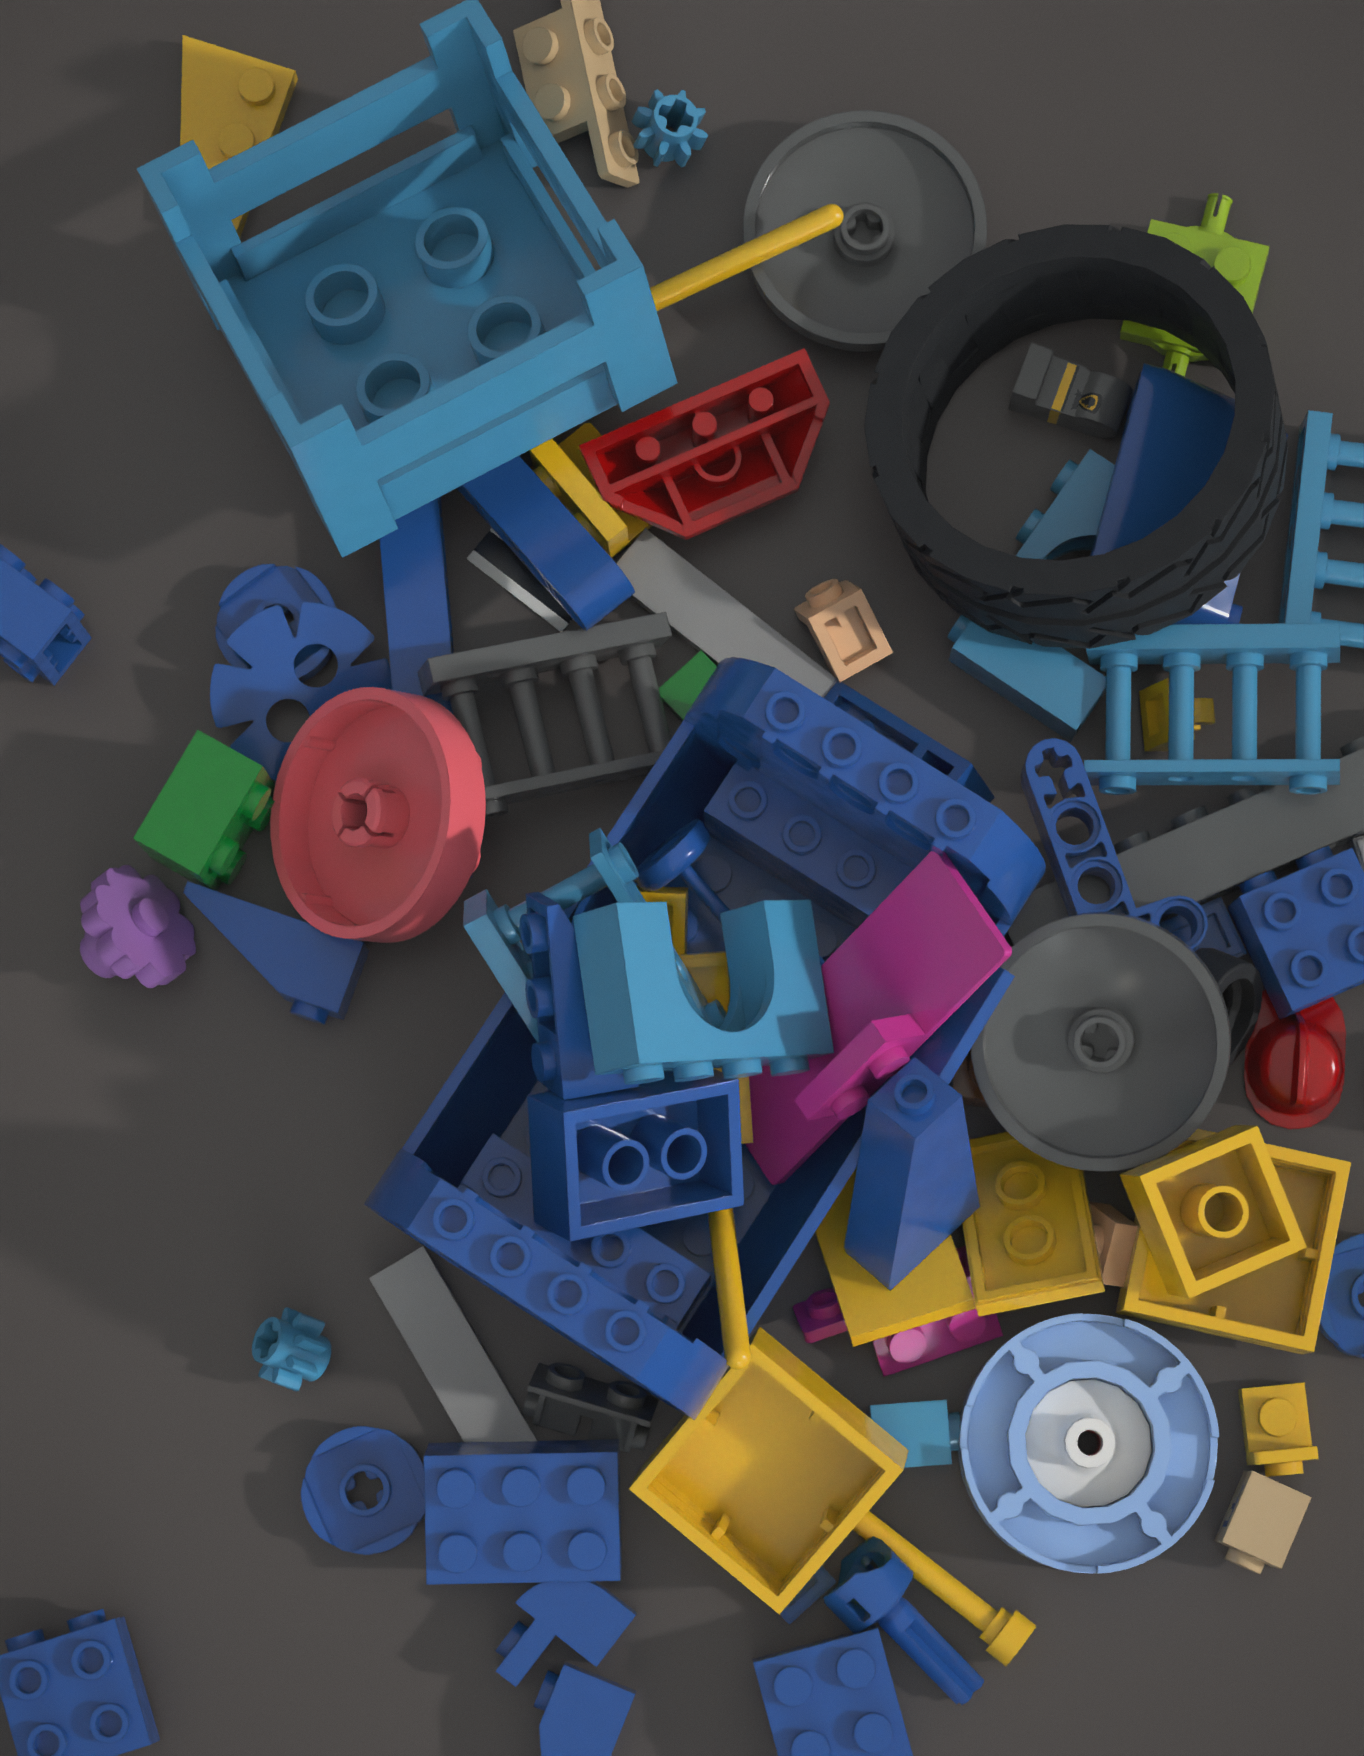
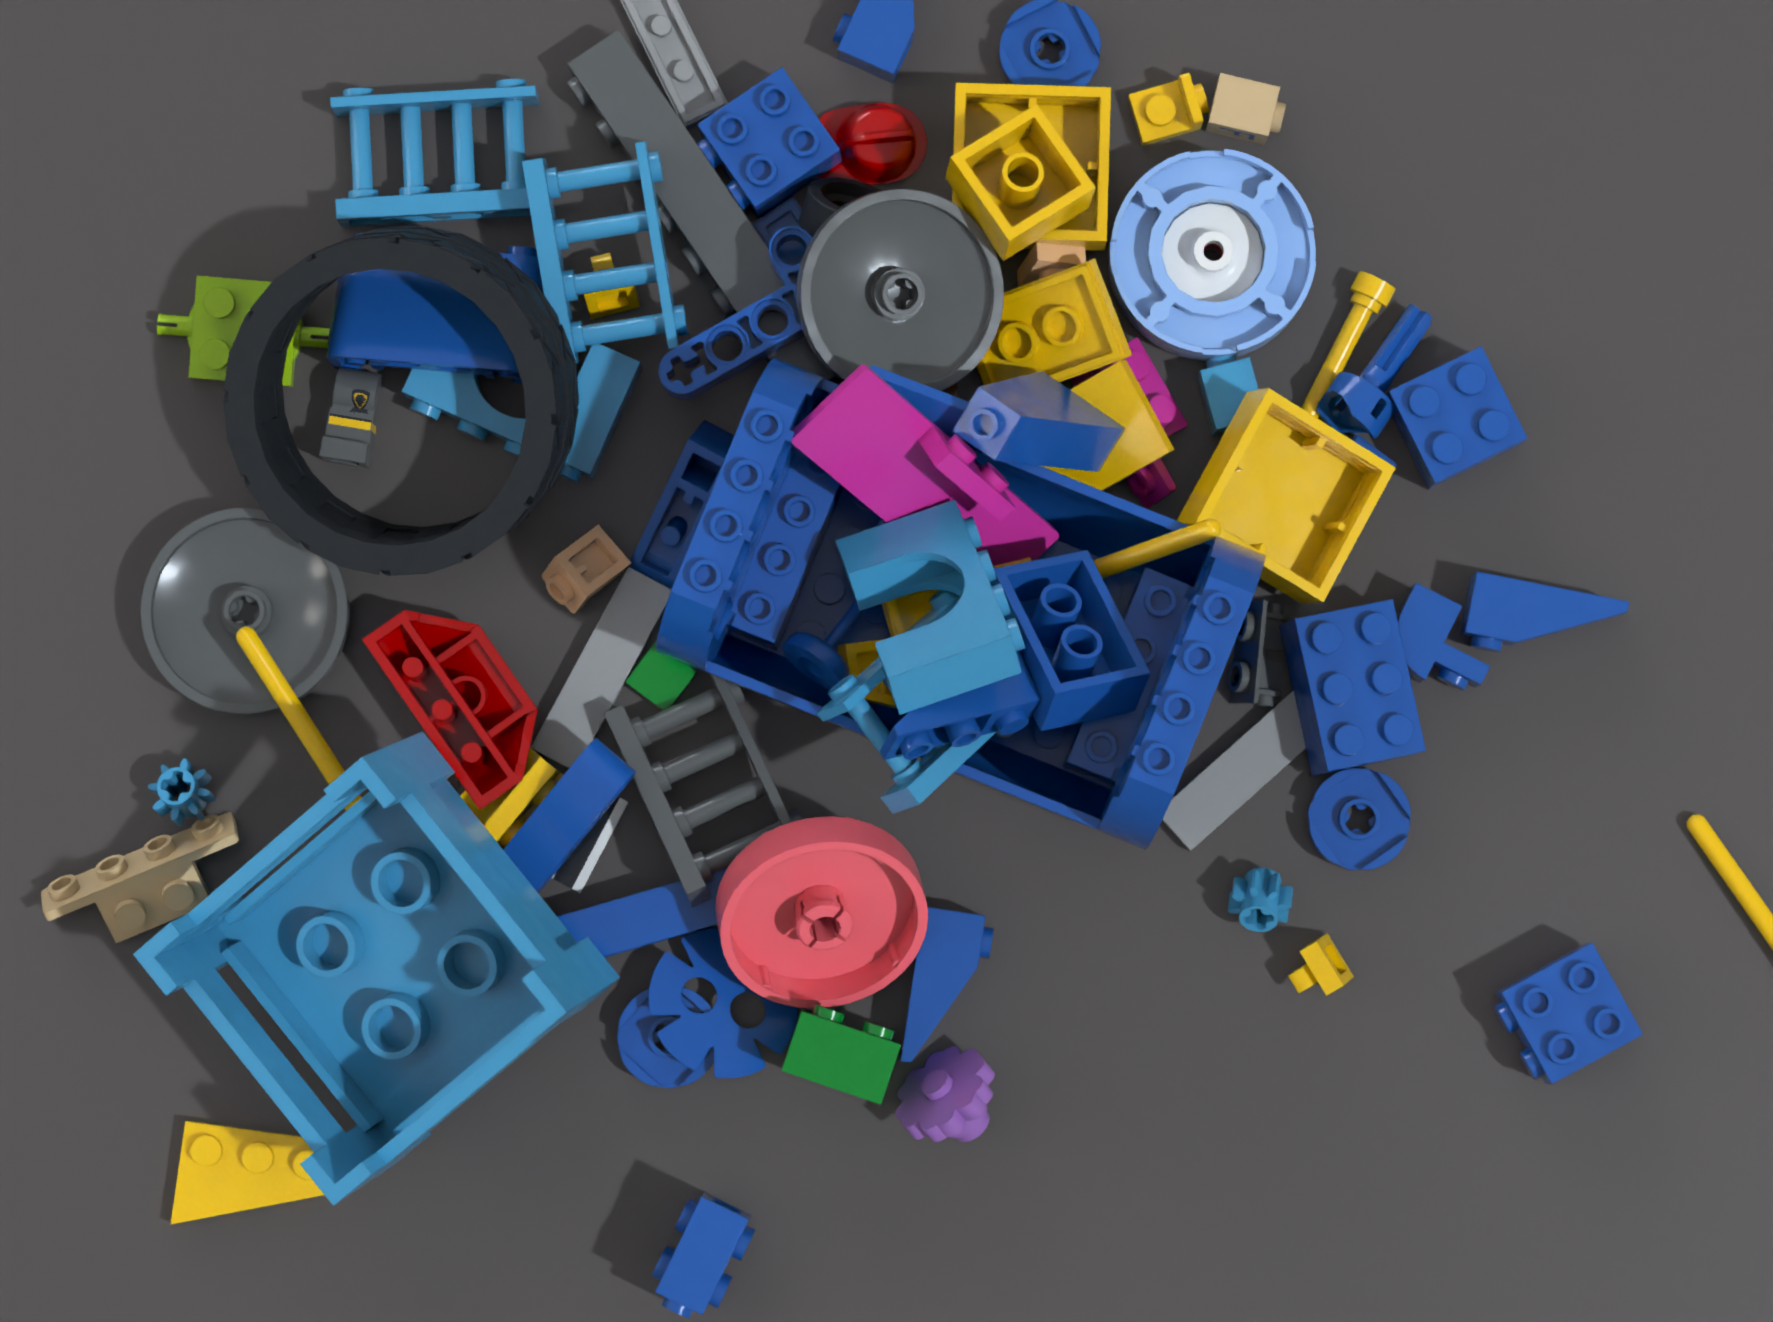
camera: 105 degrees left, 5 degrees up
(197, 1410) = (1322, 965): none -> yellow tile

